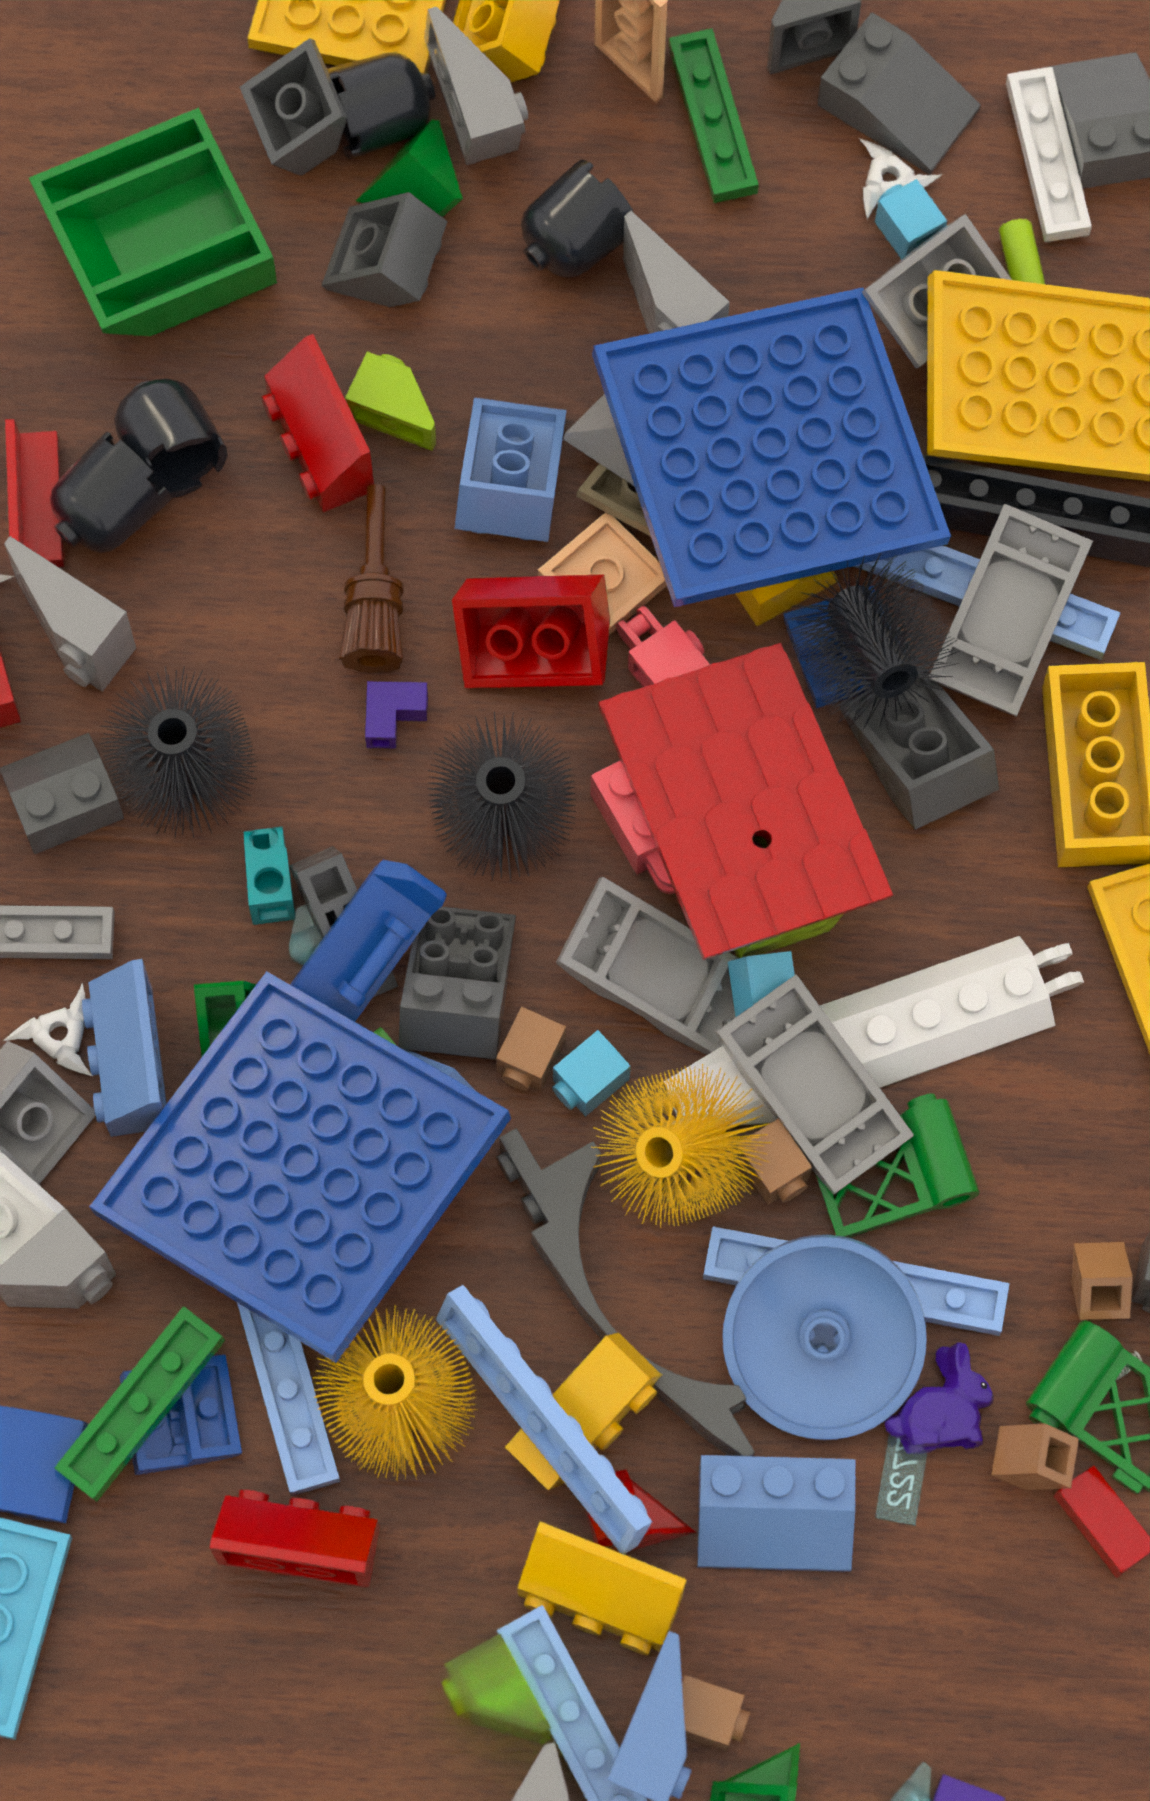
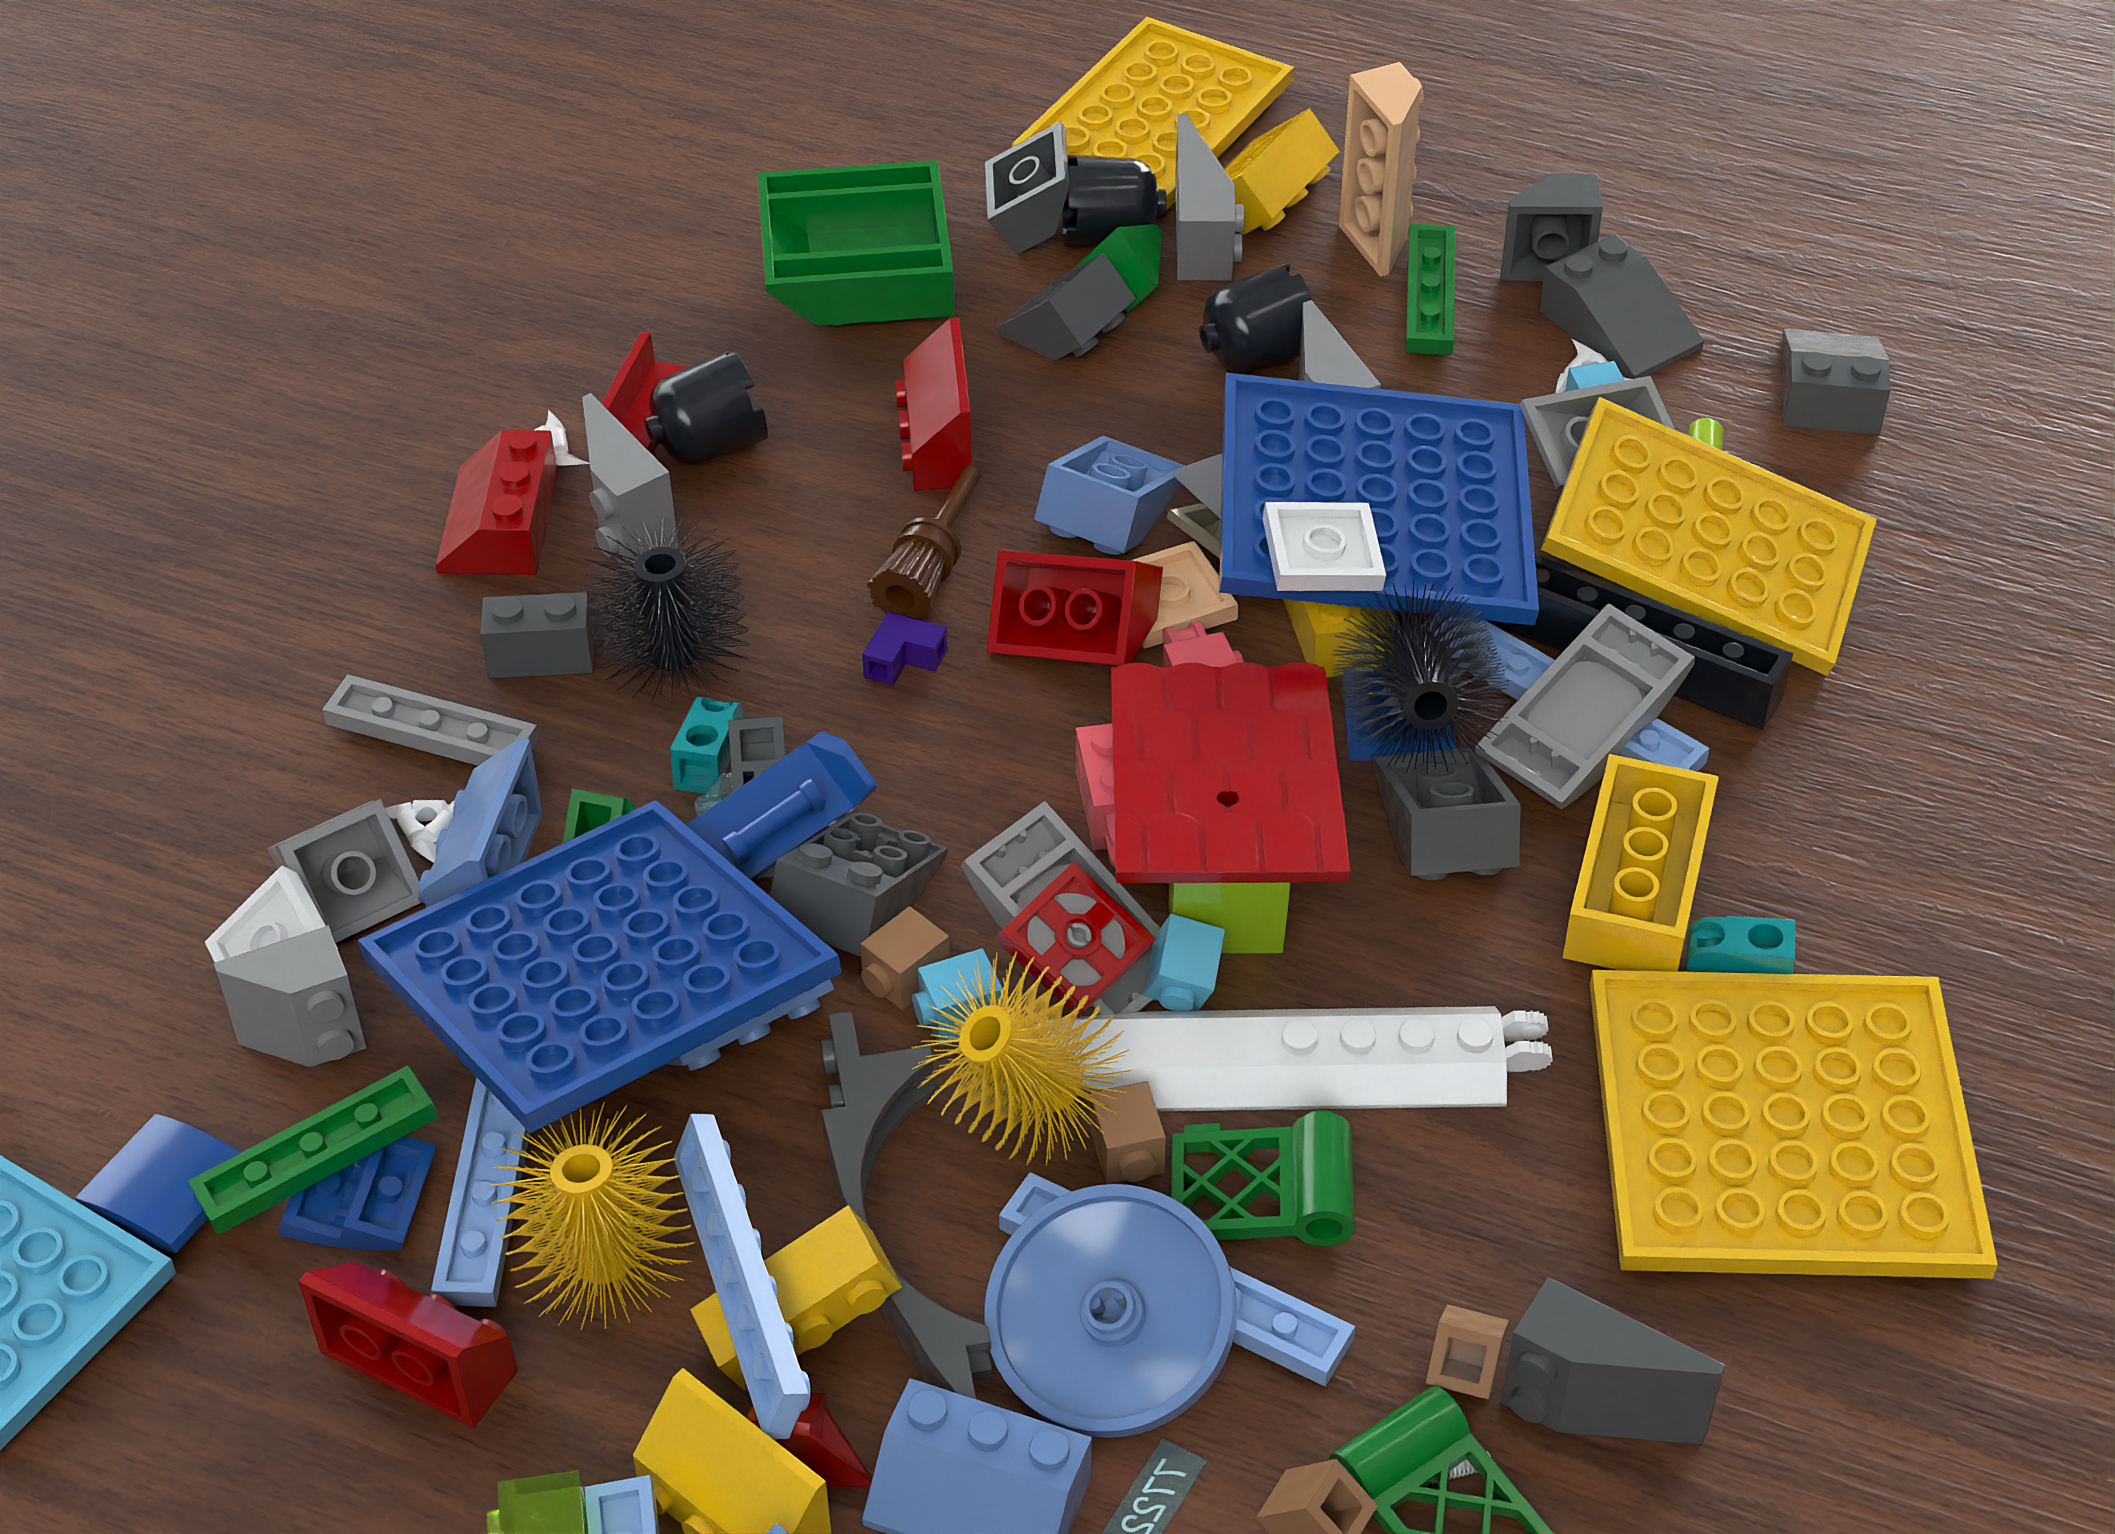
camera: 20 degrees right, 25 degrees down
(170, 434) = (792, 384): black cylinder -> none
(390, 400) = (1015, 414): lime slope -> none
(502, 797) = (975, 724): black piece -> none
(673, 1000) = (1078, 935): none -> red piece
(755, 541) = (1323, 546): none -> white plate
(813, 1084) = (1200, 1060): light grey slope -> none
(944, 1414) = (1224, 1442): dark purple animal -> none
(1048, 154) = (1759, 387): white plate -> none

